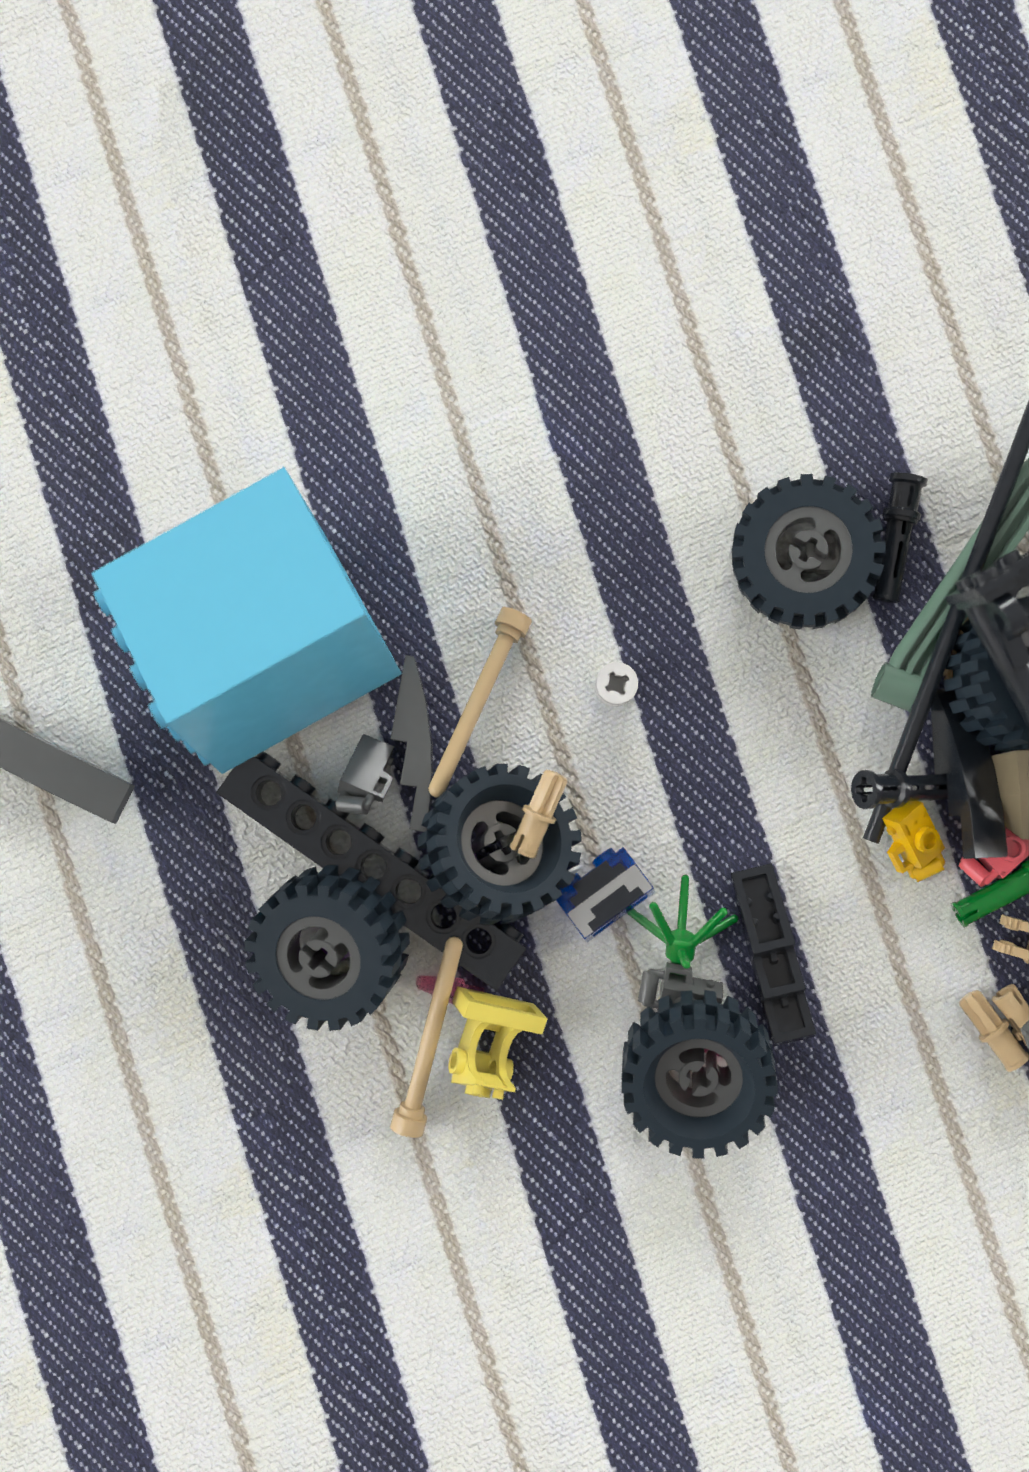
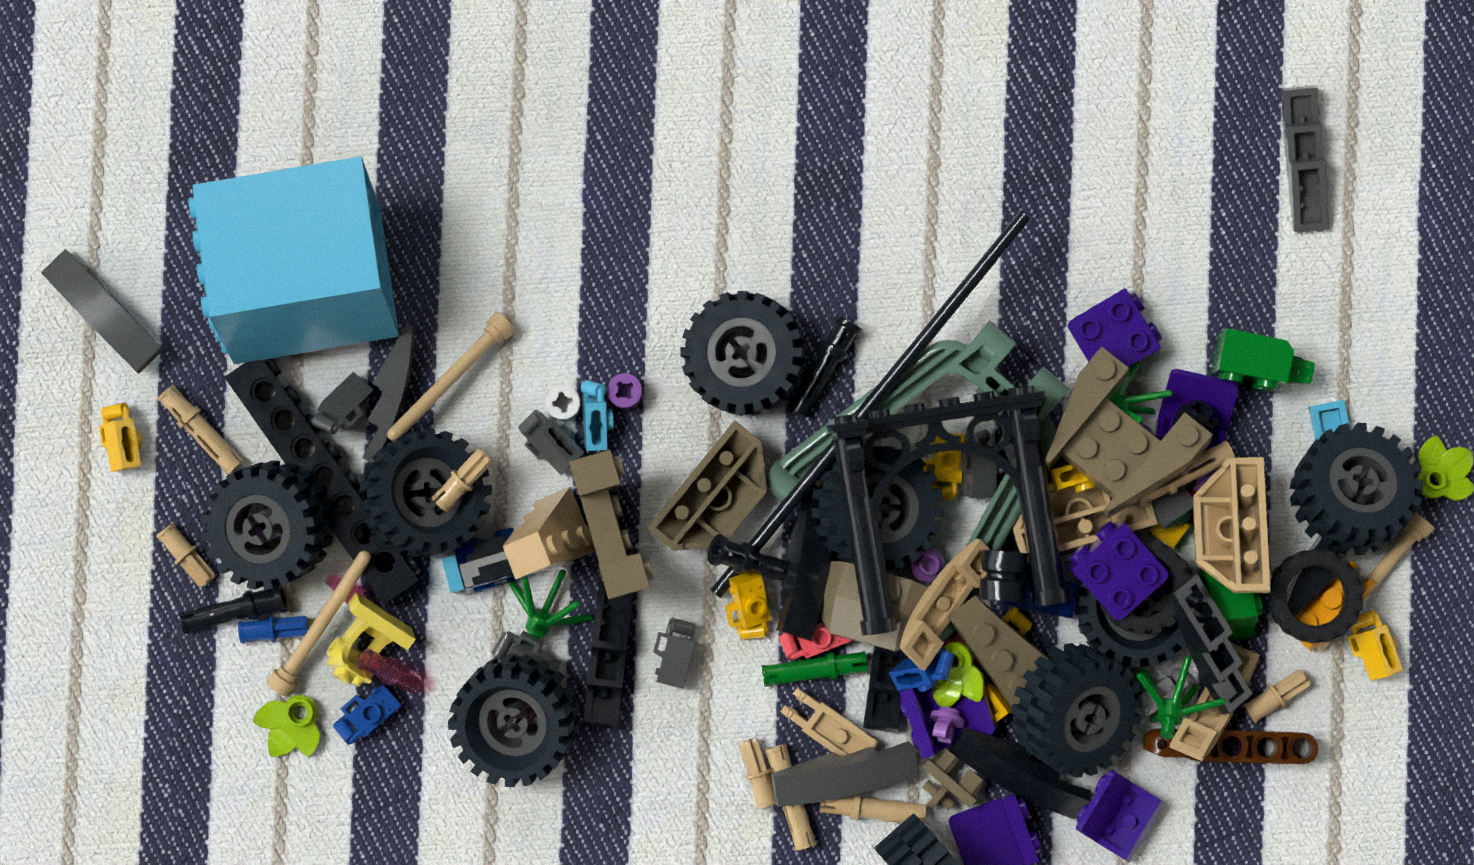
camera: 20 degrees right, 0 degrees up
(121, 905) = (120, 438): none -> yellow piece
(196, 855) = (195, 424): none -> tan pin
(245, 1014) = (186, 555): none -> tan axle
(338, 1047) = (249, 605): none -> black pin
(376, 1062) = (272, 629): none -> blue axle
(435, 1172) = (288, 730): none -> lime plate
(521, 1123) = (367, 715): none -> blue piece
(531, 1065) = (390, 671): none -> clear pink pin
(562, 925) = (453, 574): none -> medium azure tile
(618, 734) = (550, 441): none -> dark grey piece
(659, 686) = (595, 416): none -> medium azure piece
(661, 843) = (549, 536): none -> tan wedge
(677, 652) = (629, 395): none -> medium lavender wheel
(768, 855) = (595, 480): none -> dark tan wedge
(831, 724) = (715, 494): none -> dark tan wedge
(851, 926) = (677, 653): none -> dark grey piece

